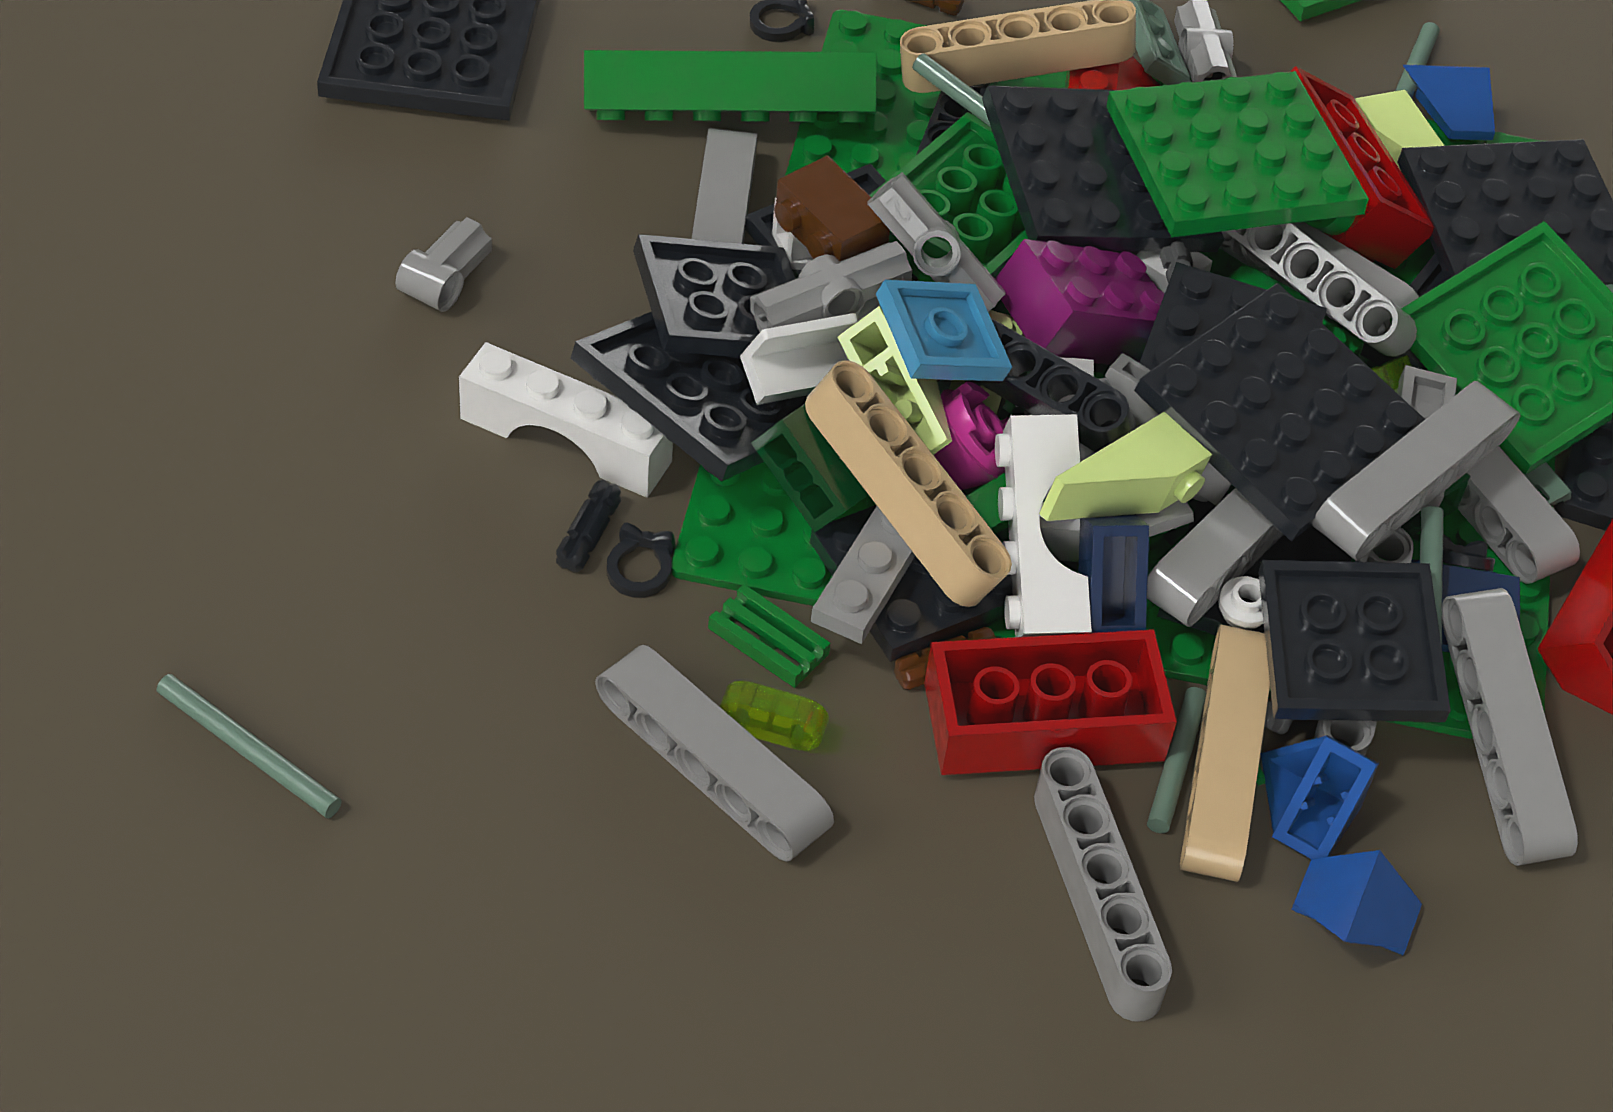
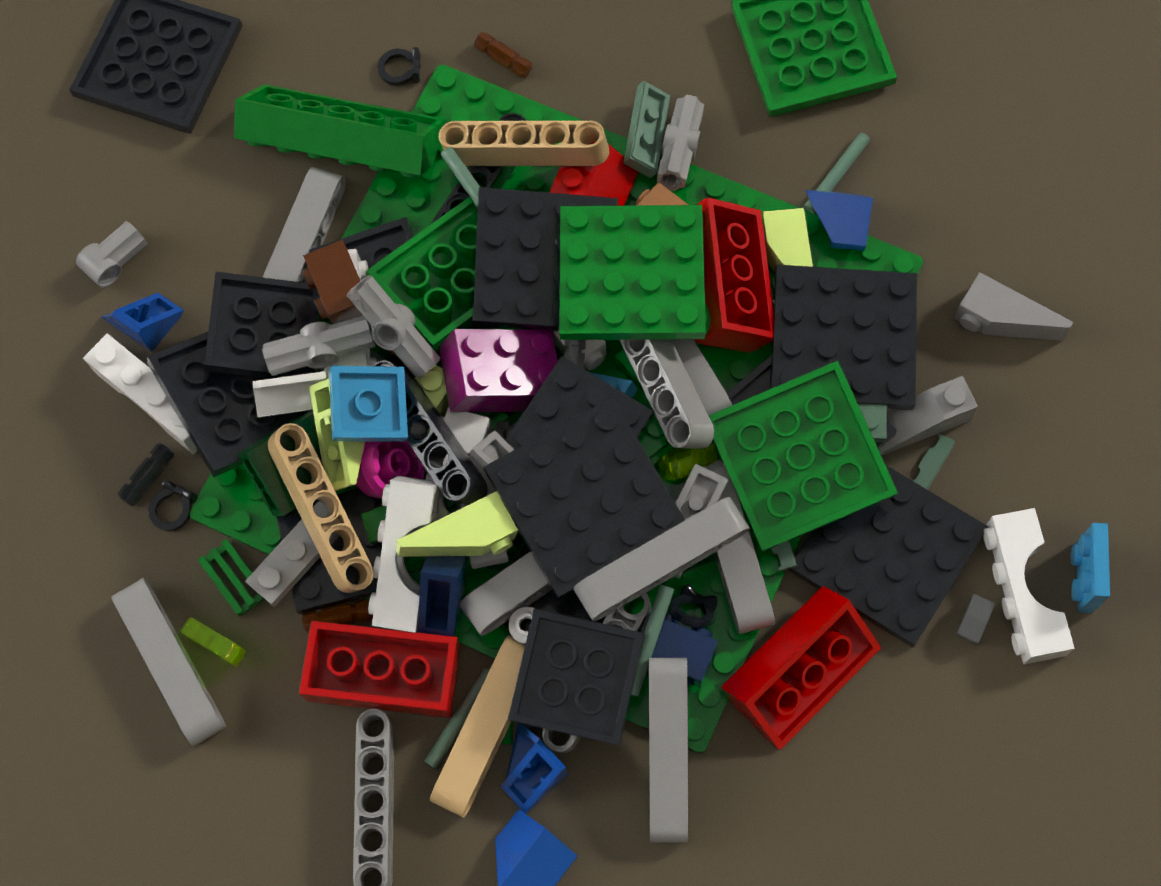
camera: 25 degrees right, 20 degrees up
(518, 332) = (146, 319): none -> blue slope

